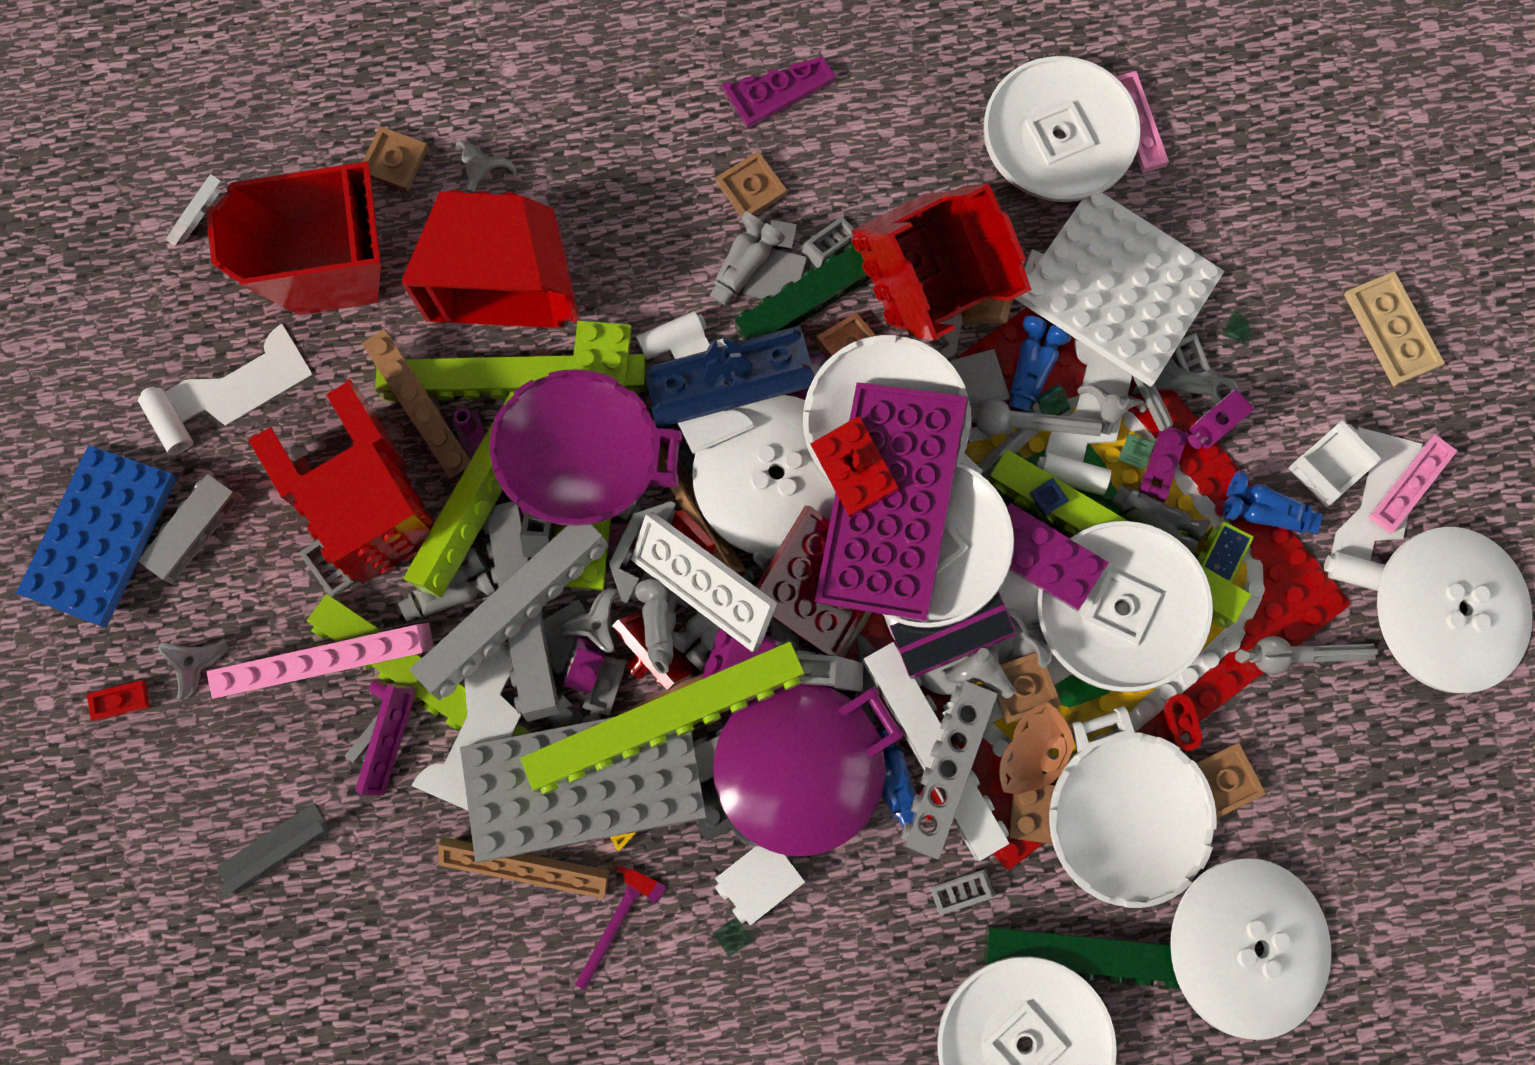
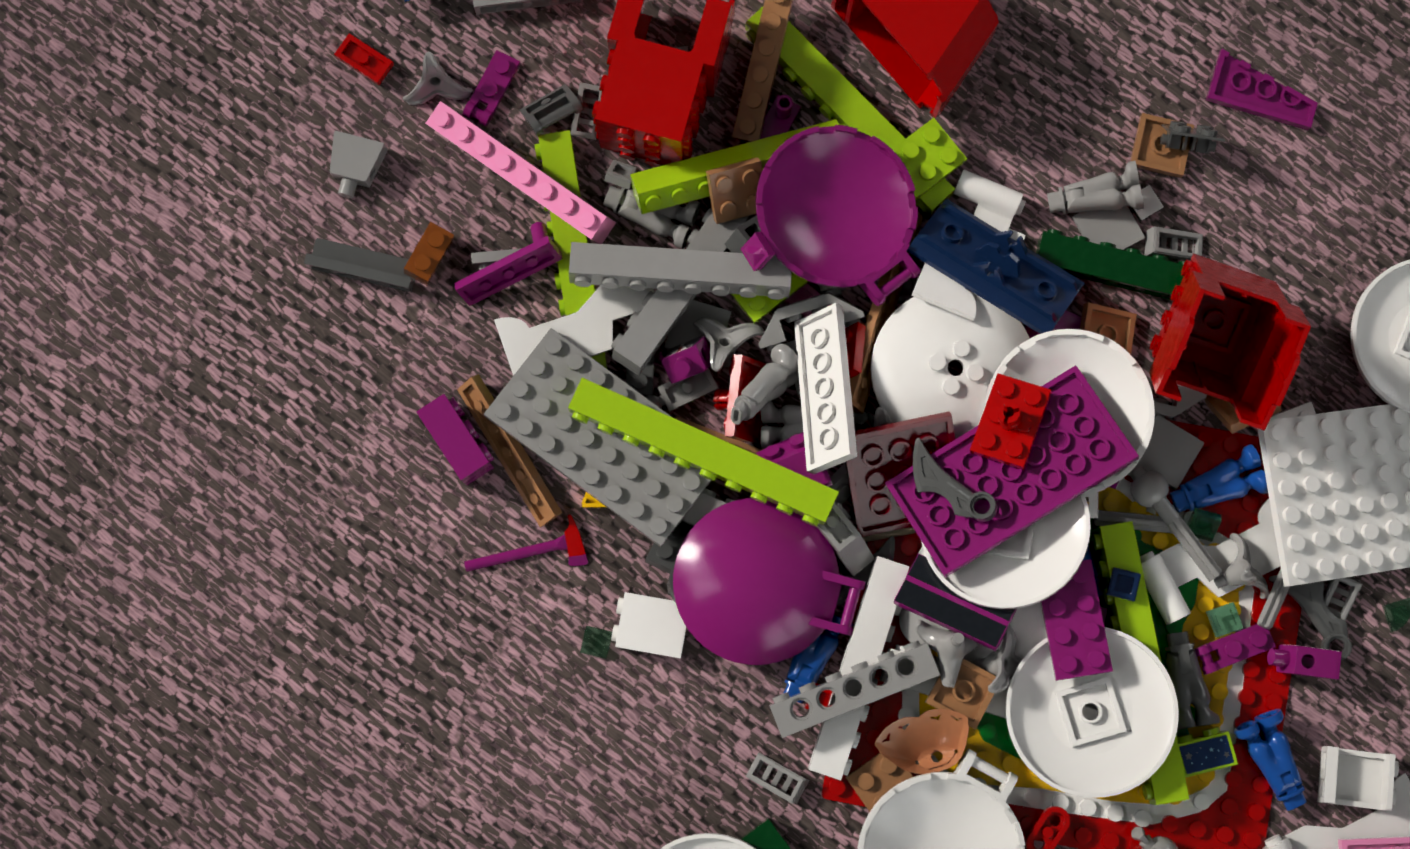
camera: 45 degrees right, 5 degrees up
(187, 781) = (355, 161): none -> light grey torso
(237, 623) = (492, 87): none -> magenta plate
(297, 593) = (551, 109): none -> dark grey plate
(313, 789) = (428, 253): none -> dark orange brick
(396, 587) = (619, 174): none -> light grey tile
(474, 901) = (456, 438): none -> magenta brick
(490, 511) = (734, 189): none -> medium nougat plate
(552, 535) = (757, 251): none -> magenta tile
(772, 154) = (1203, 133): none -> dark grey hinge
(845, 562) = (932, 478): none -> dark grey piece

